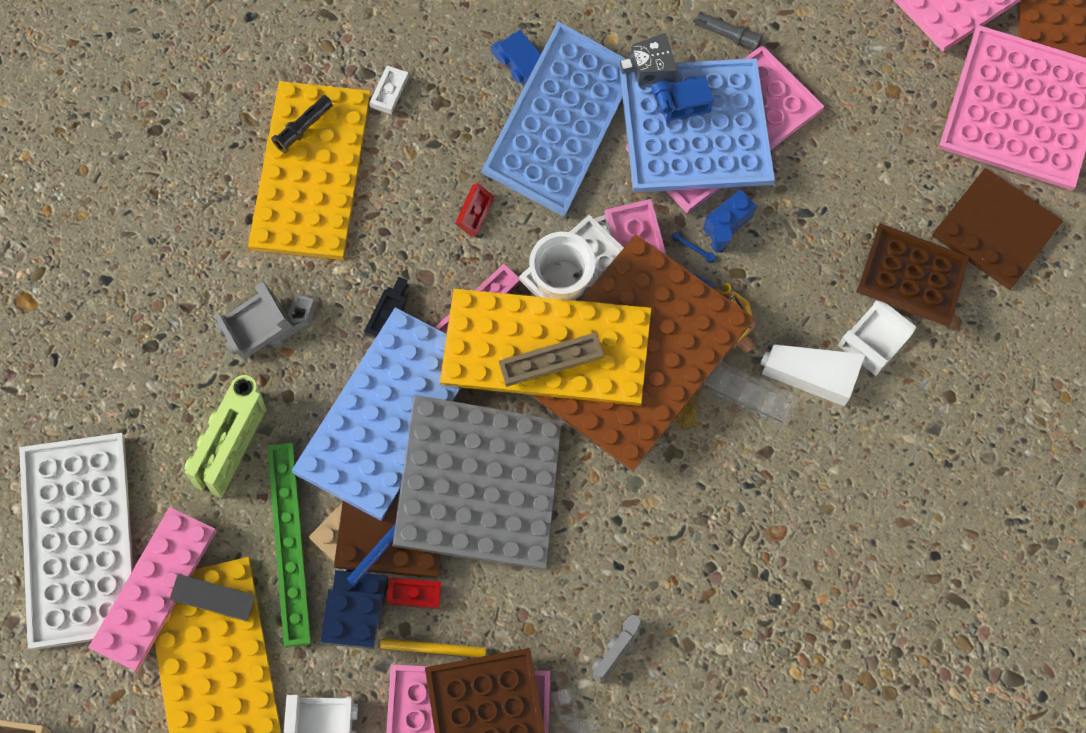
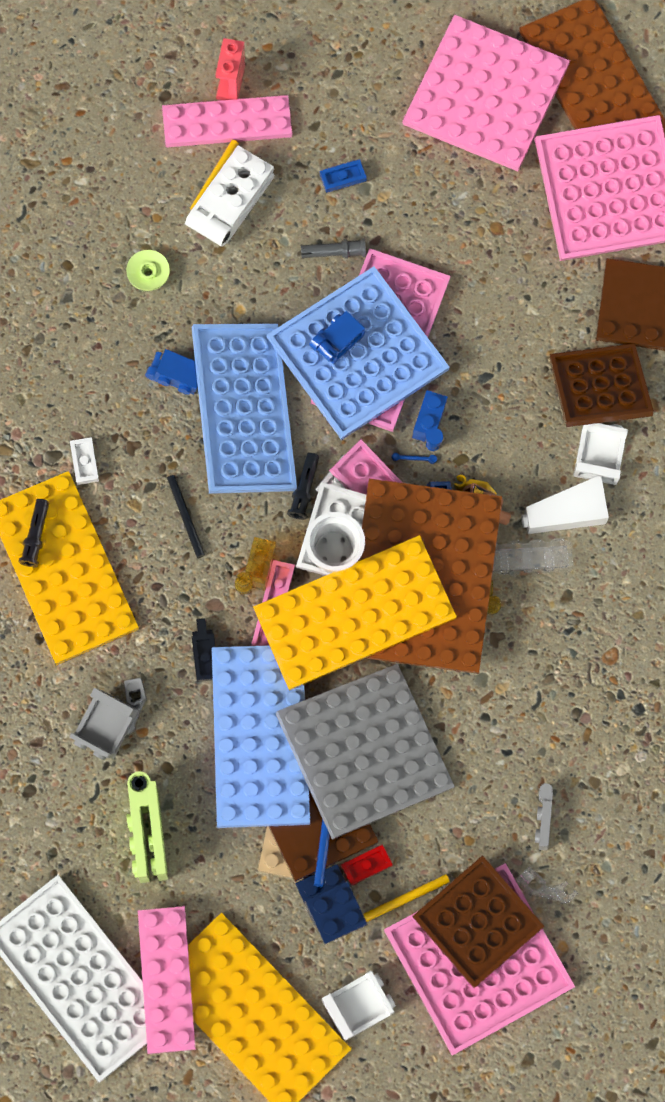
camera: 30 degrees left, 5 degrees up
(212, 597) = (218, 959): dark grey tile -> none
(289, 546) = (246, 884): bright green plate -> none
(449, 185) = (185, 516): none -> black bar
(474, 210) = (221, 527): red plate -> none
(484, 260) = (258, 566): none -> clear yellow hinge
(551, 359) = (368, 622): dark tan plate -> none
(567, 222) = (302, 494): none -> black pin
(651, 61) = (292, 319): dark grey torso -> none

